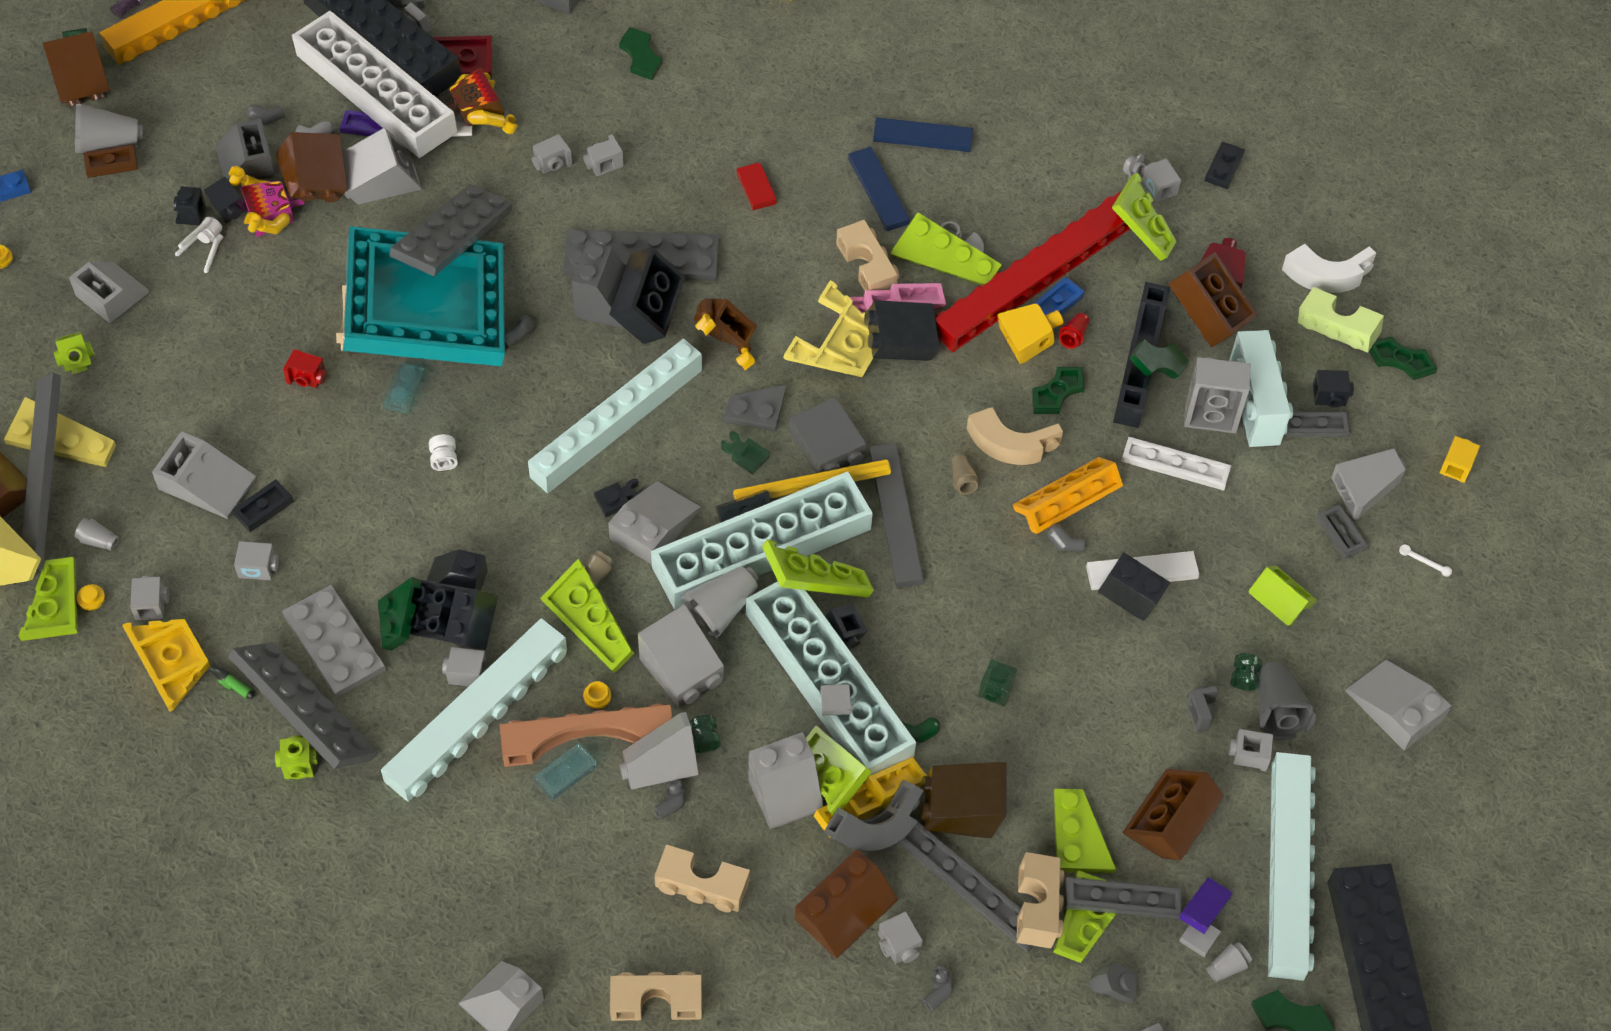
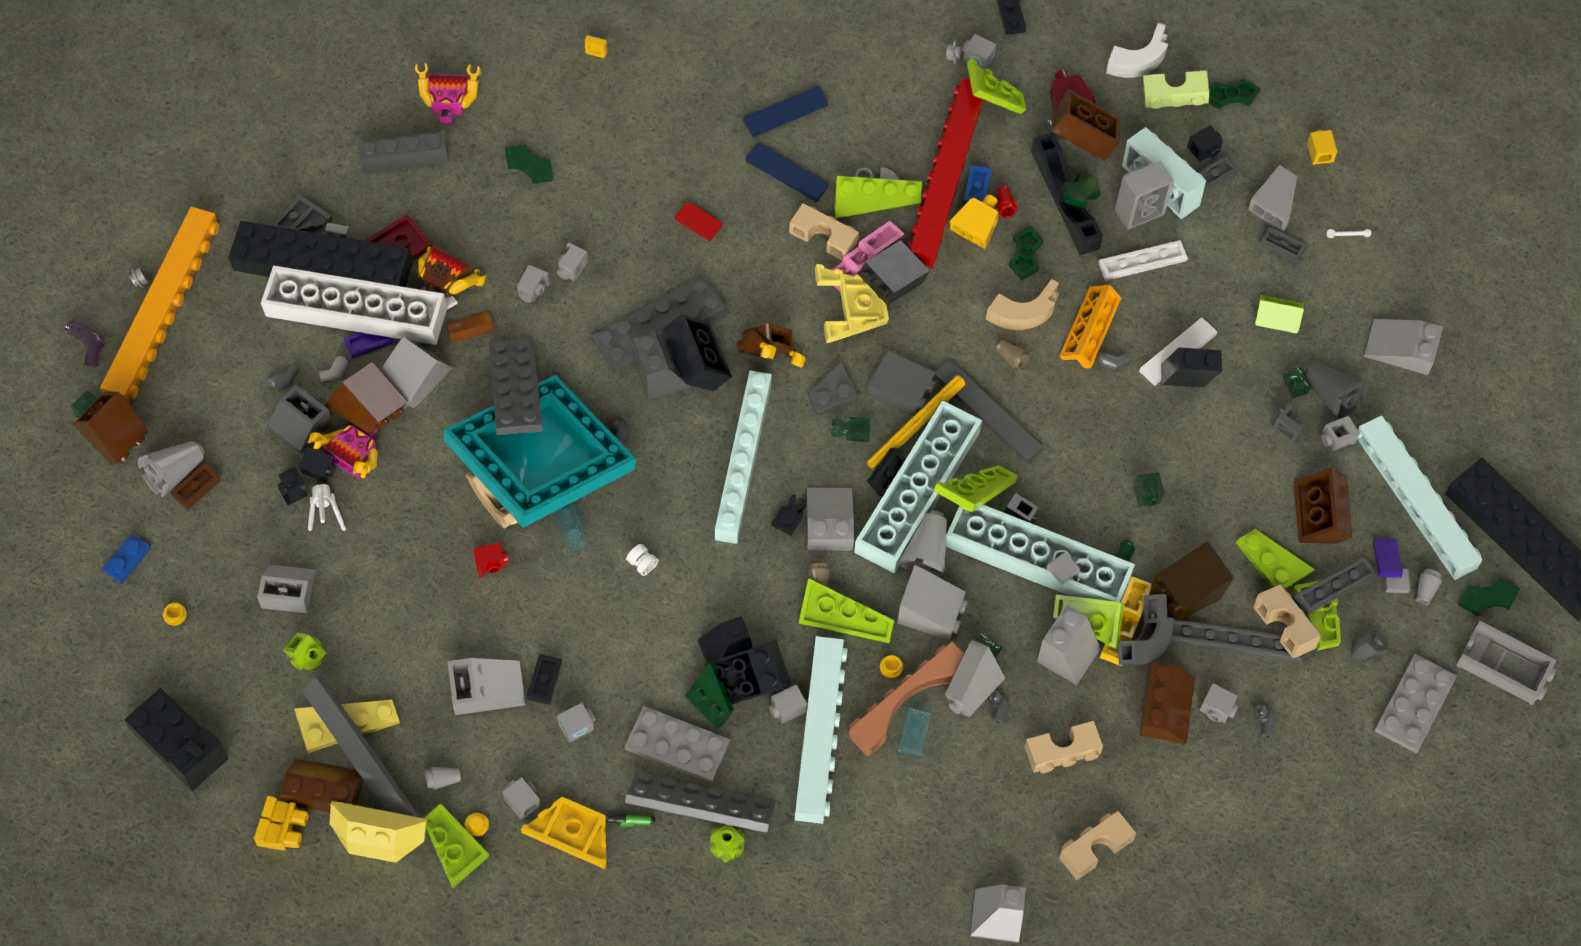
camera: 35 degrees left, 5 degrees up
(465, 162) = (469, 326): none -> dark orange slope

